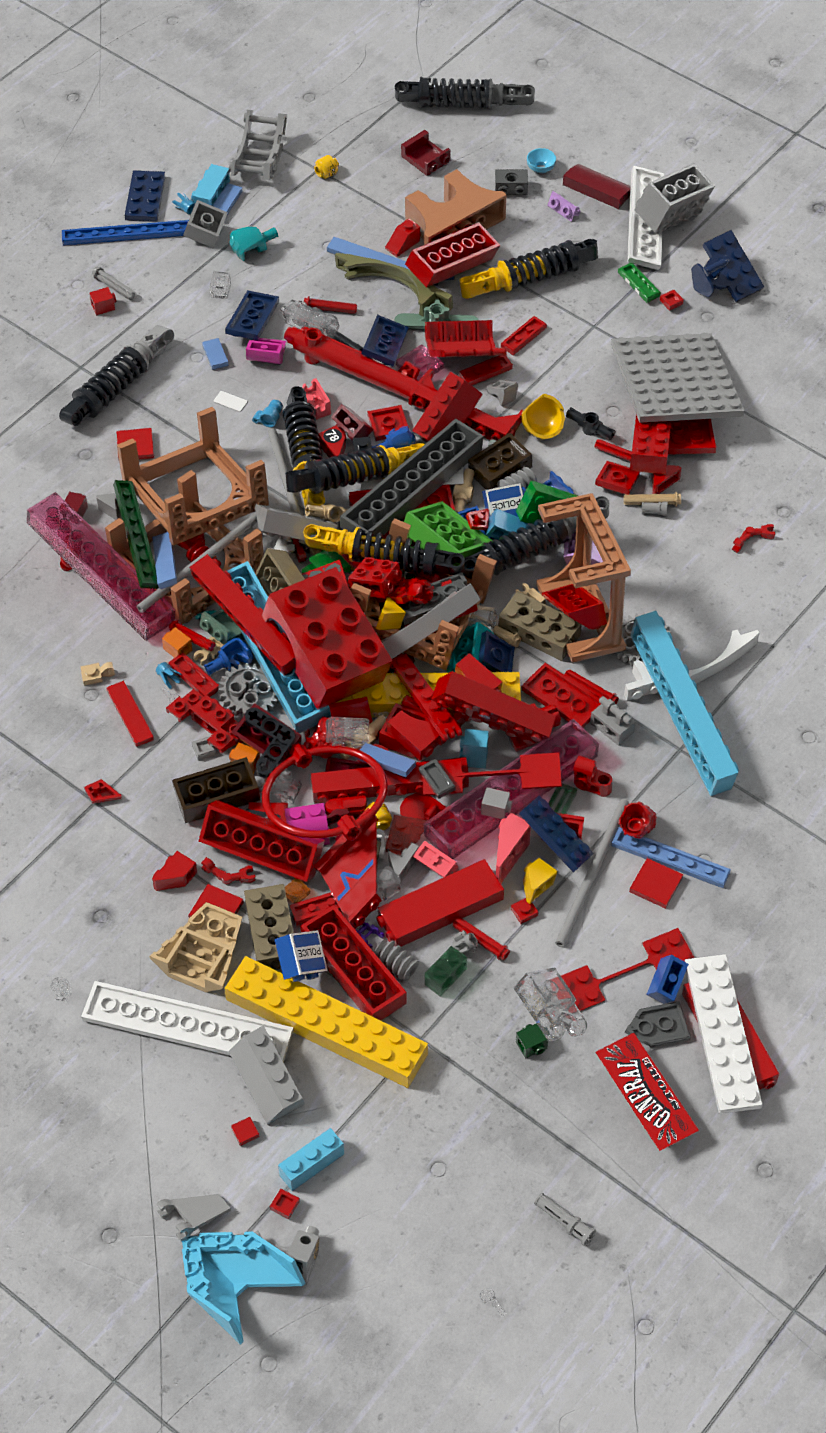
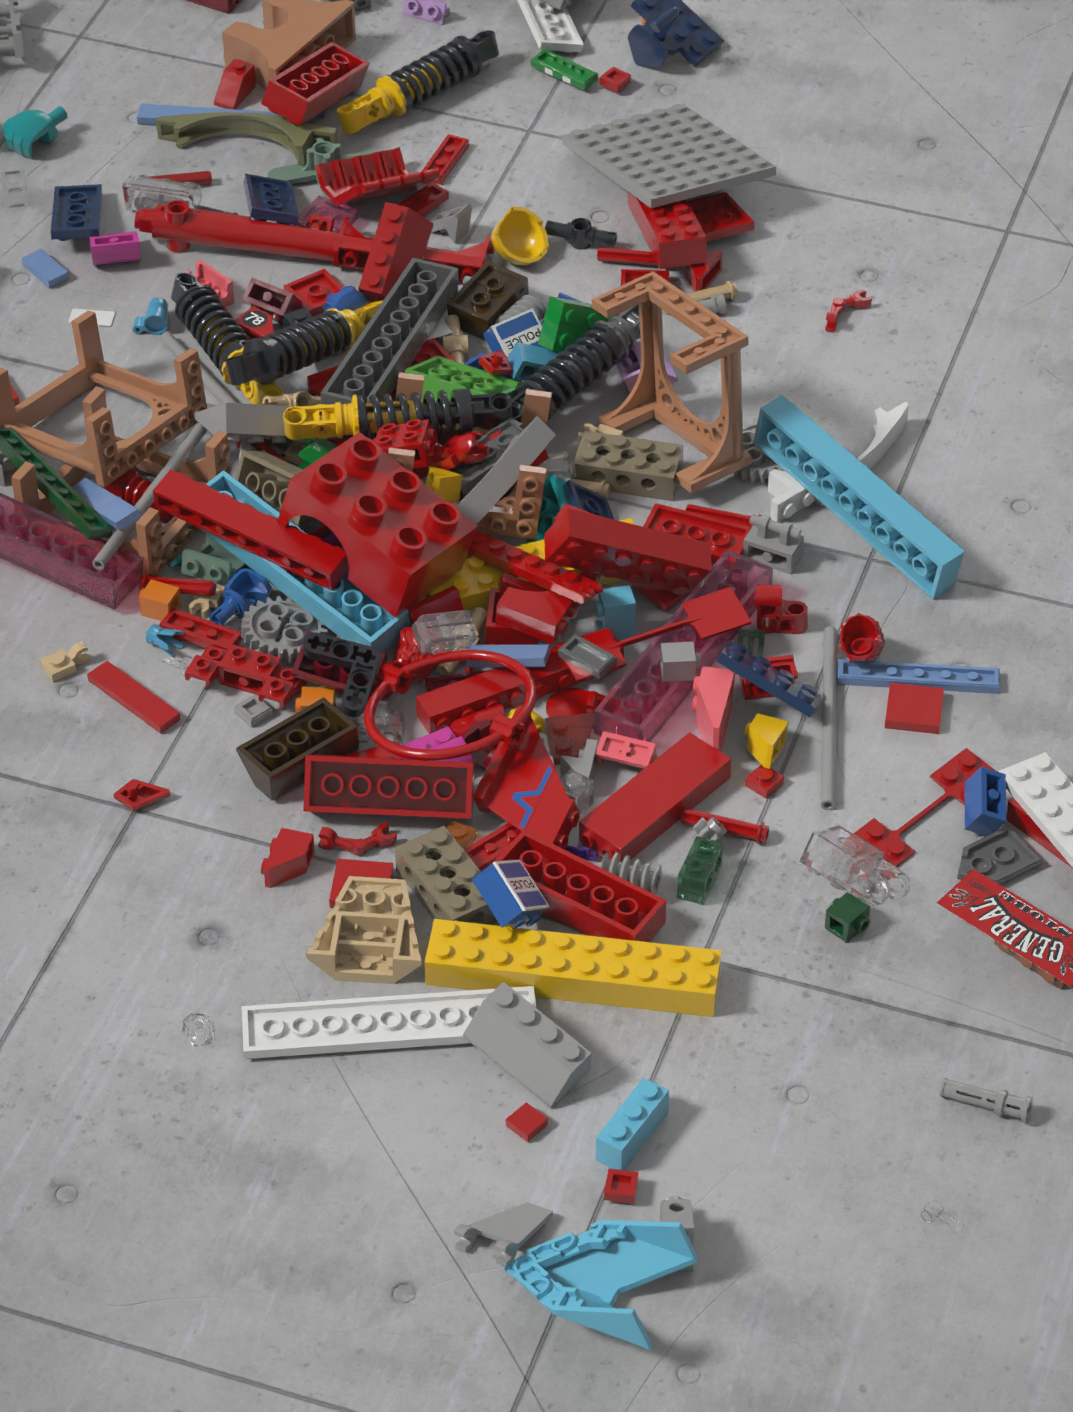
camera: 20 degrees left, 10 degrees down
(326, 166) = (91, 28): yellow head -> none
(578, 605) = (673, 424): red slope -> none

